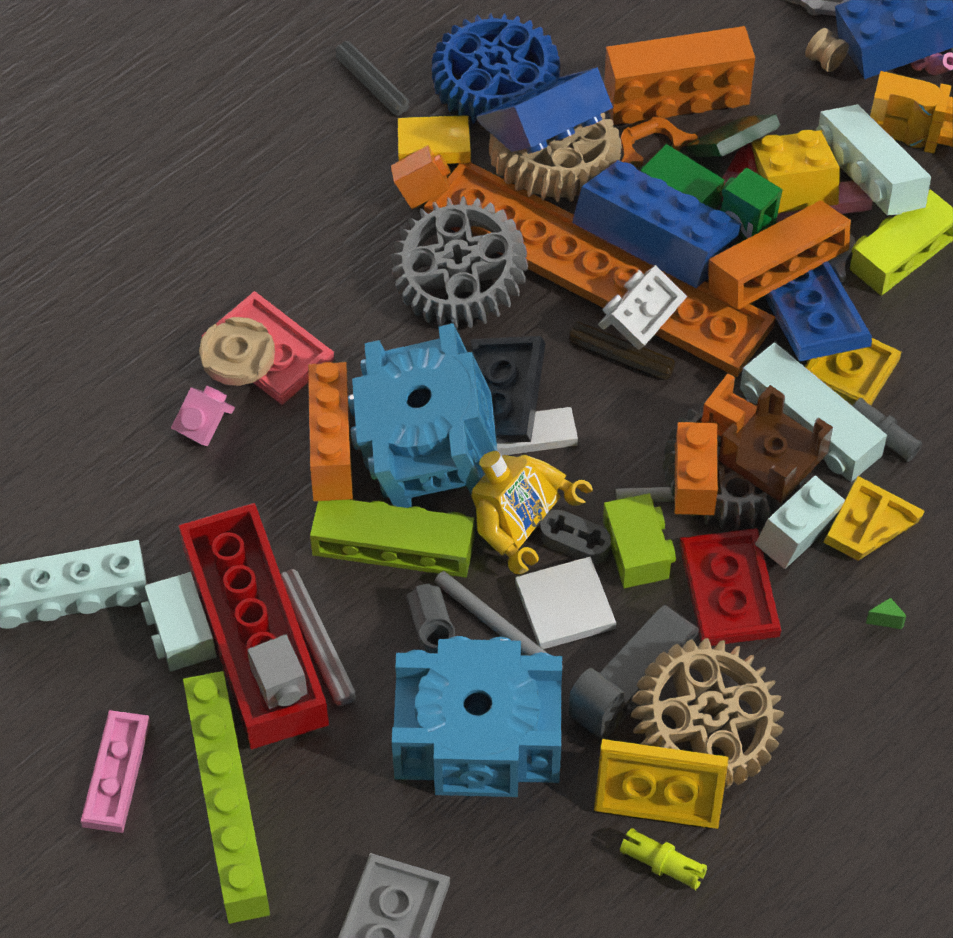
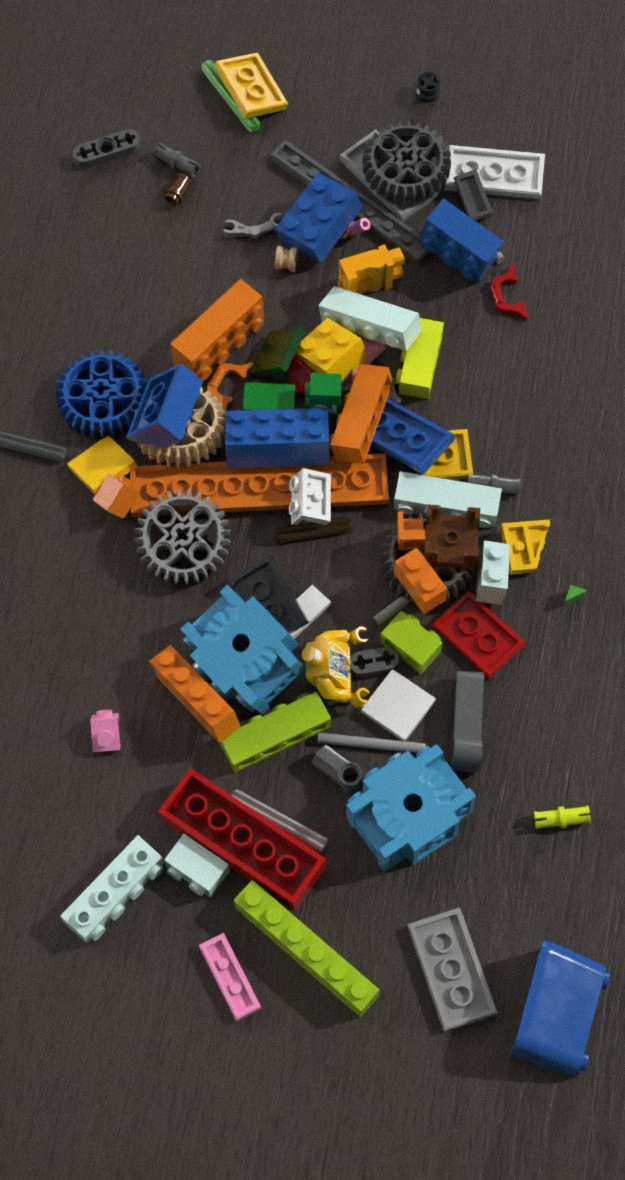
camera: 35 degrees left, 10 degrees up
(237, 351) = (95, 678): tan tile -> none
(277, 672) = (290, 861): light grey brick -> none
(293, 348) = (107, 662): coral tile -> none
(660, 783) = (534, 778): yellow tile -> none
(716, 701) = (561, 733): tan gear -> none

